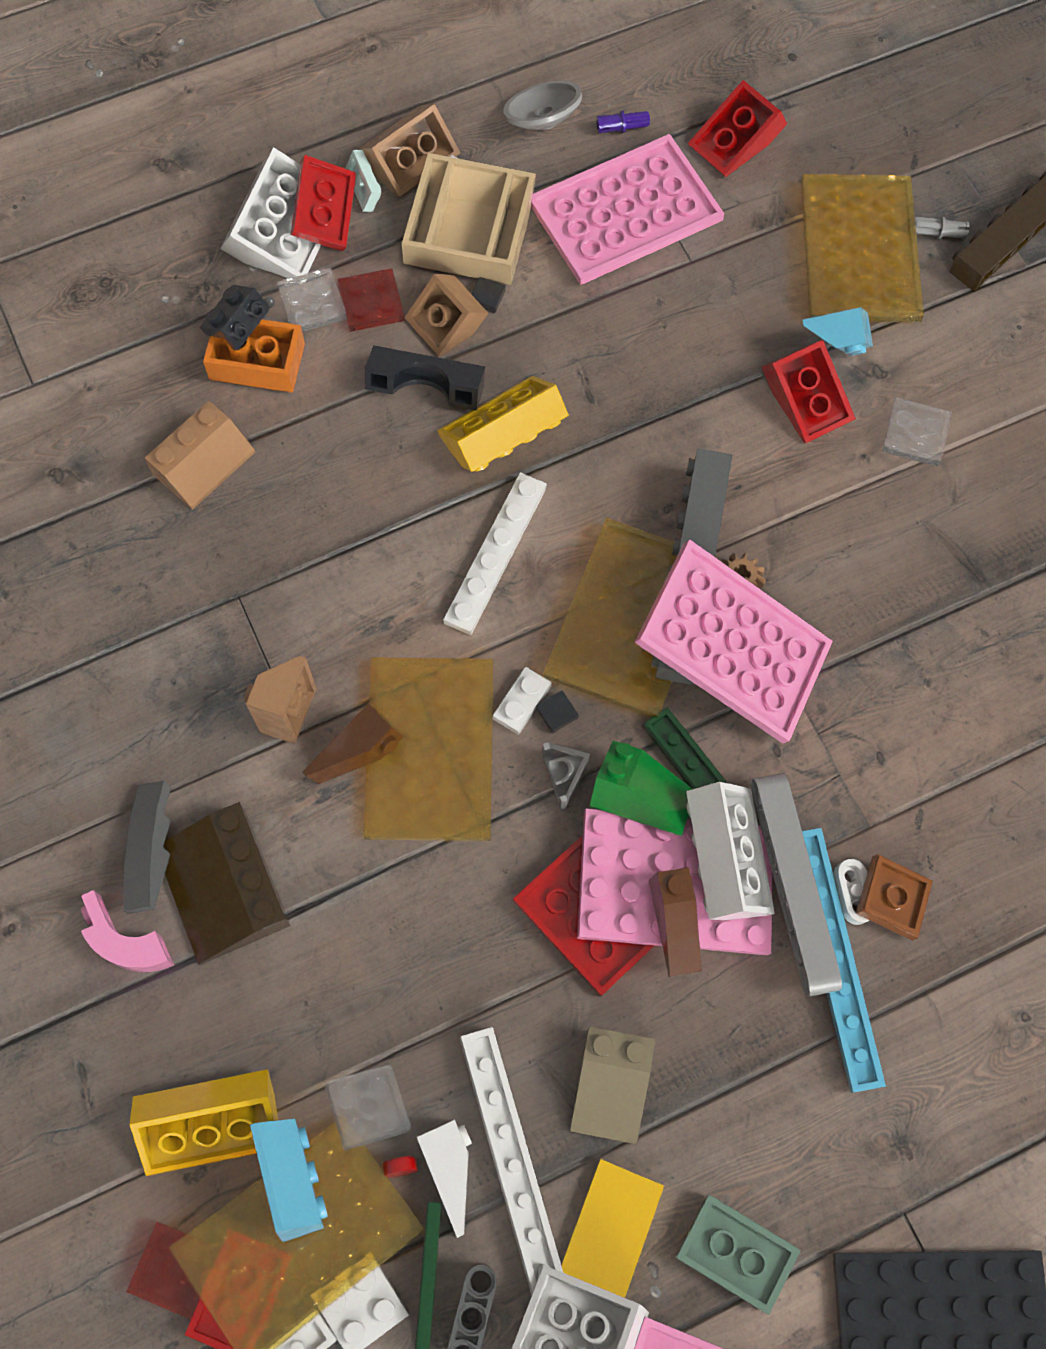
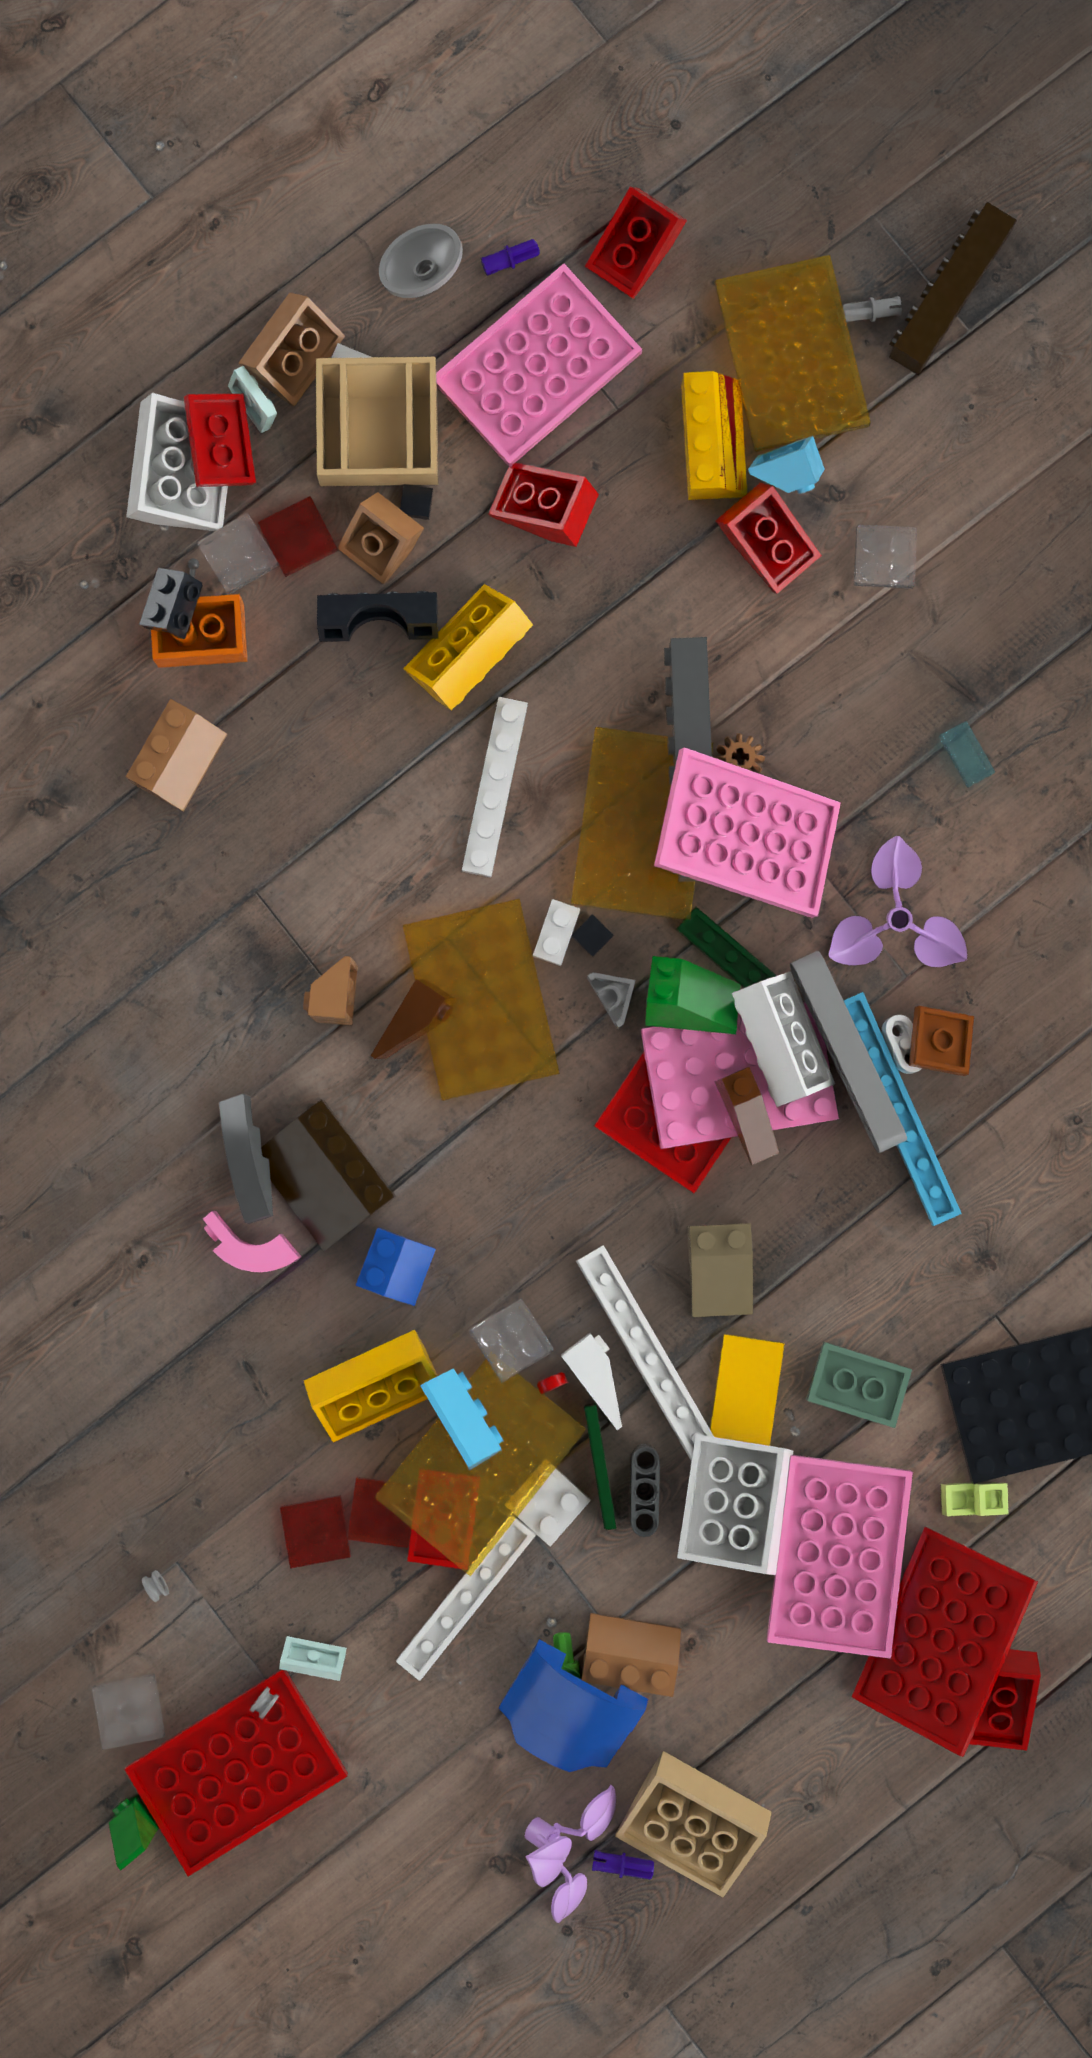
camera: 15 degrees left, 15 degrees up
(95, 1274) = (315, 1531): none -> clear red plate
(267, 996) = (395, 1266): none -> blue slope
(606, 318) = (545, 502): none -> red slope
(774, 297) = (713, 436): none -> yellow slope
(824, 781) = (856, 941): none -> lavender plant
(966, 626) = (967, 754): none -> clear light blue tile

